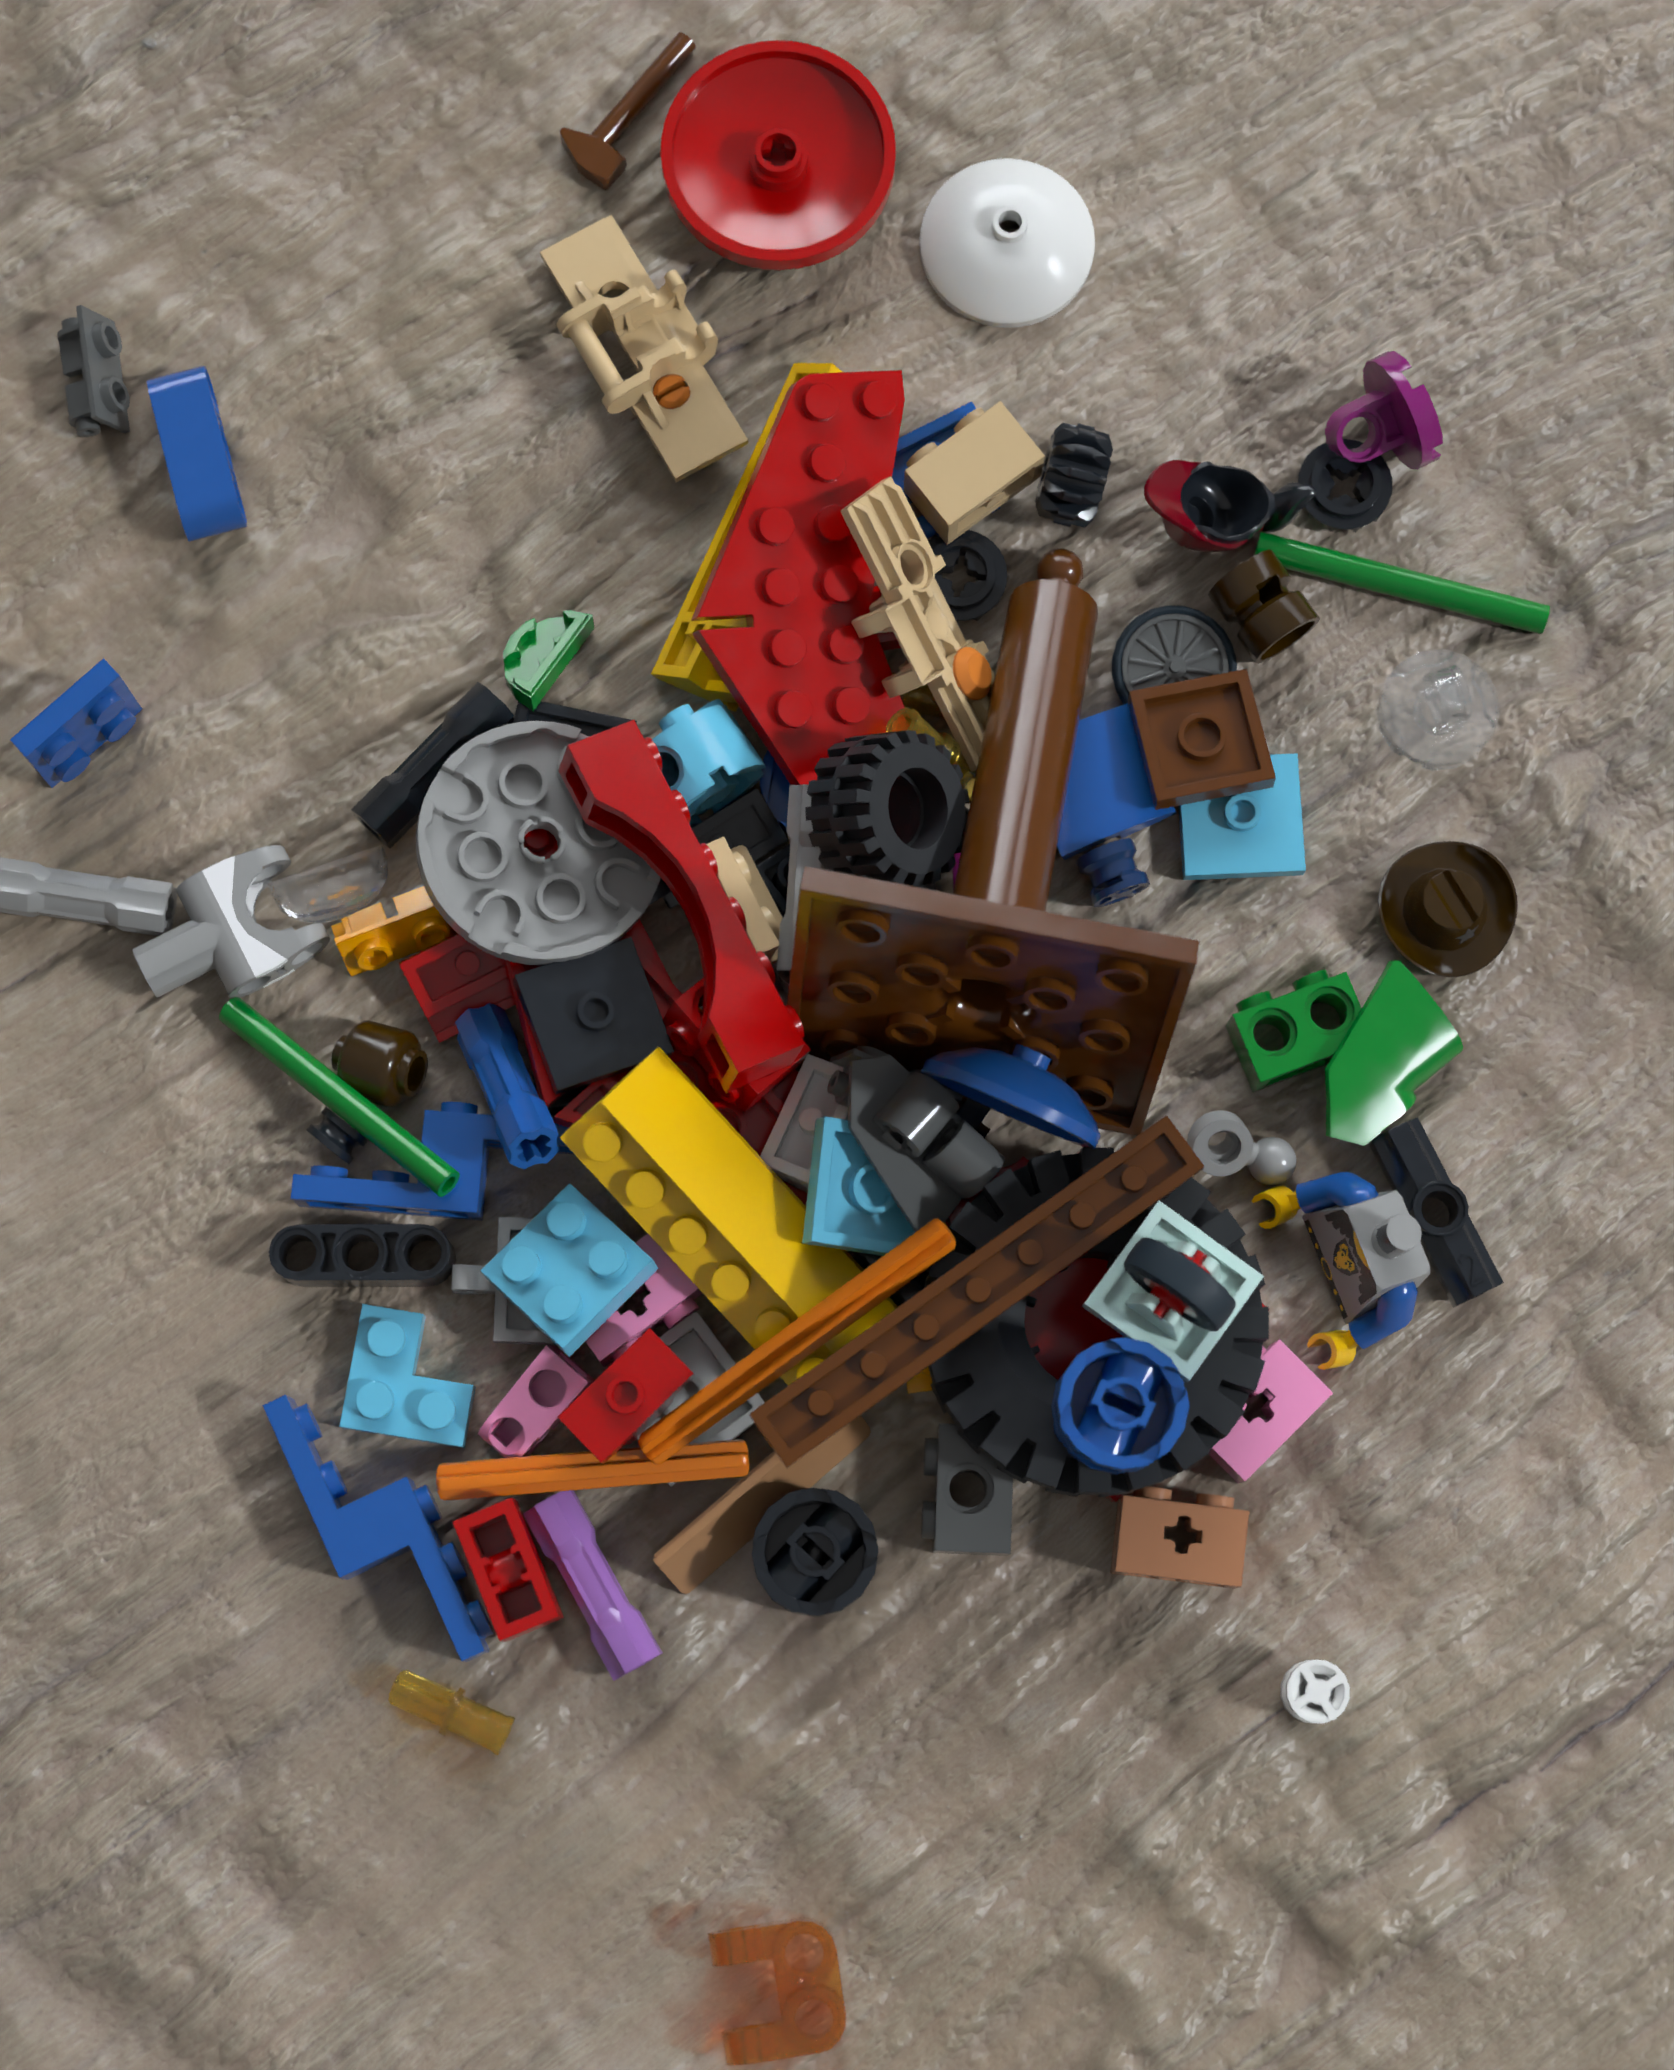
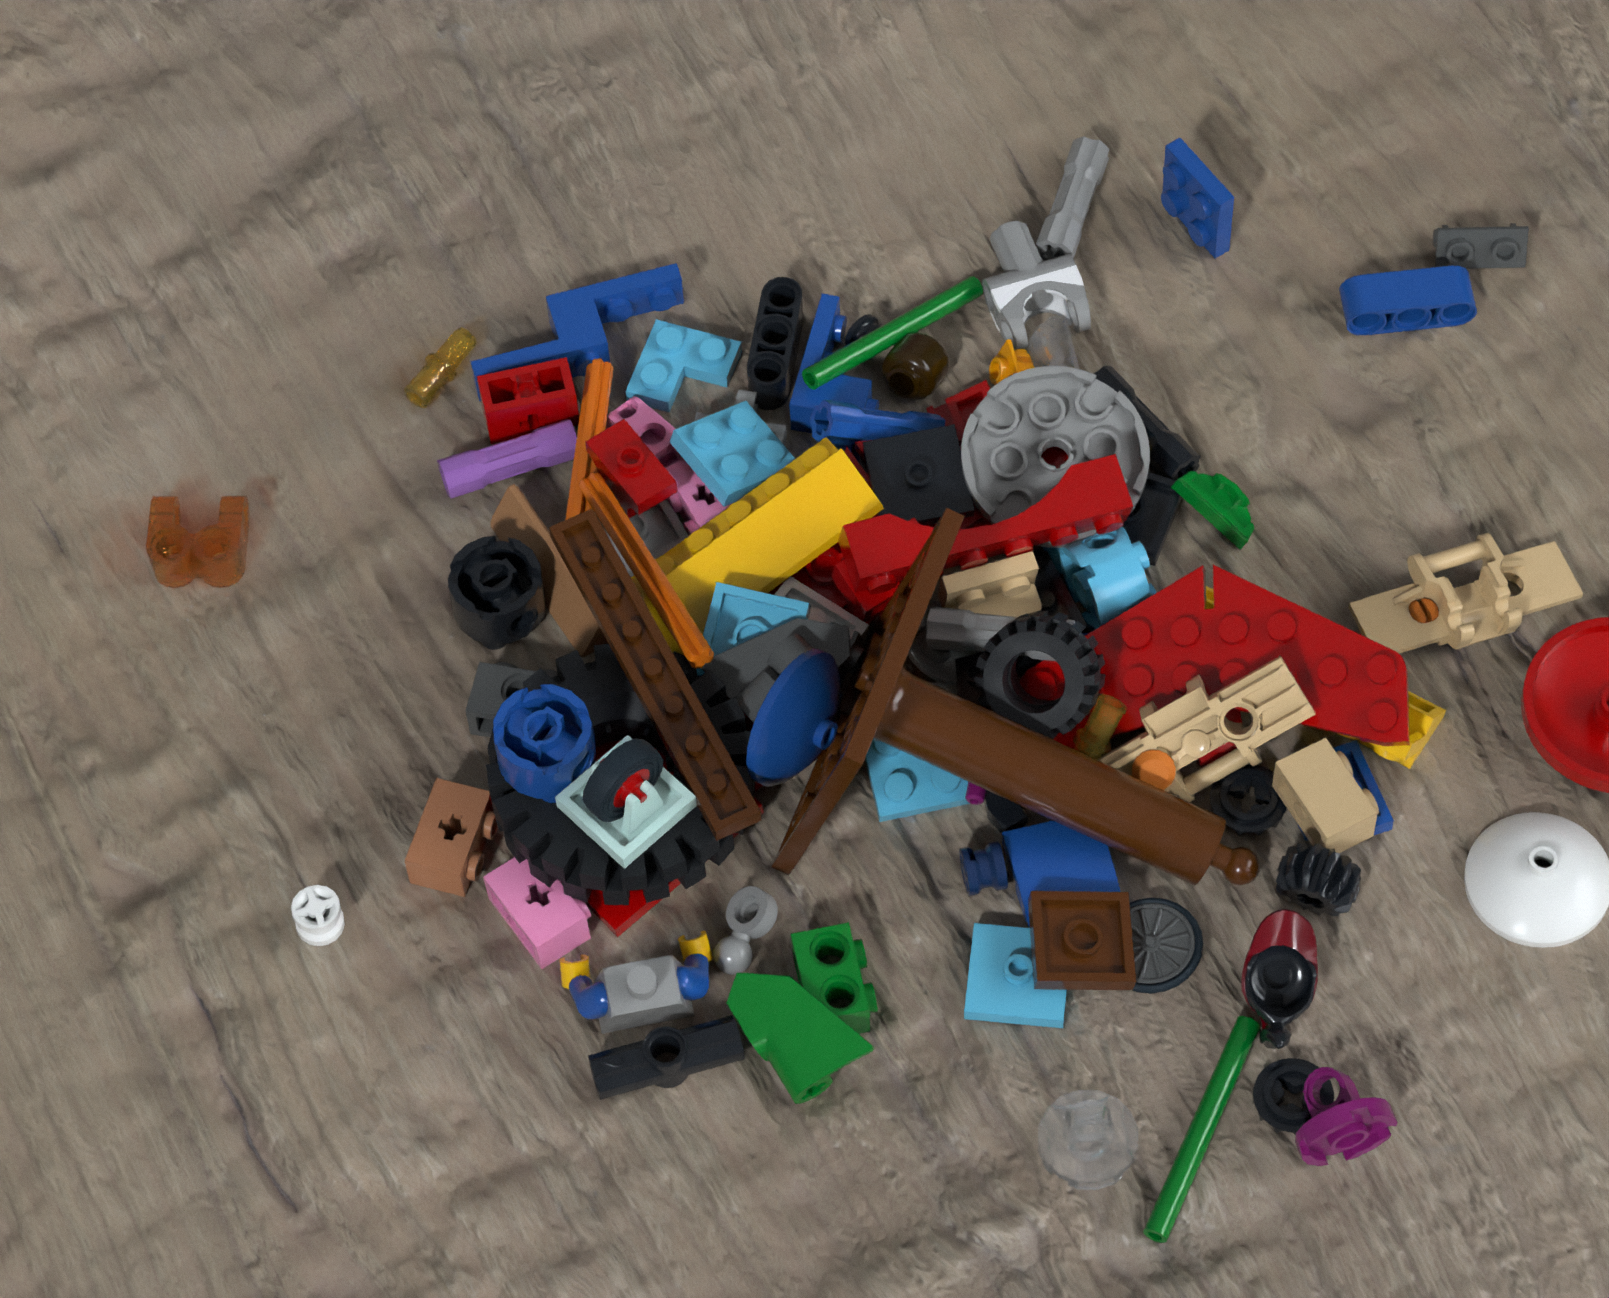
camera: 105 degrees right, 20 degrees down
(1263, 606) = (1174, 1016): dark brown wheel -> none
(1448, 907) = (914, 1112): dark brown hat -> none

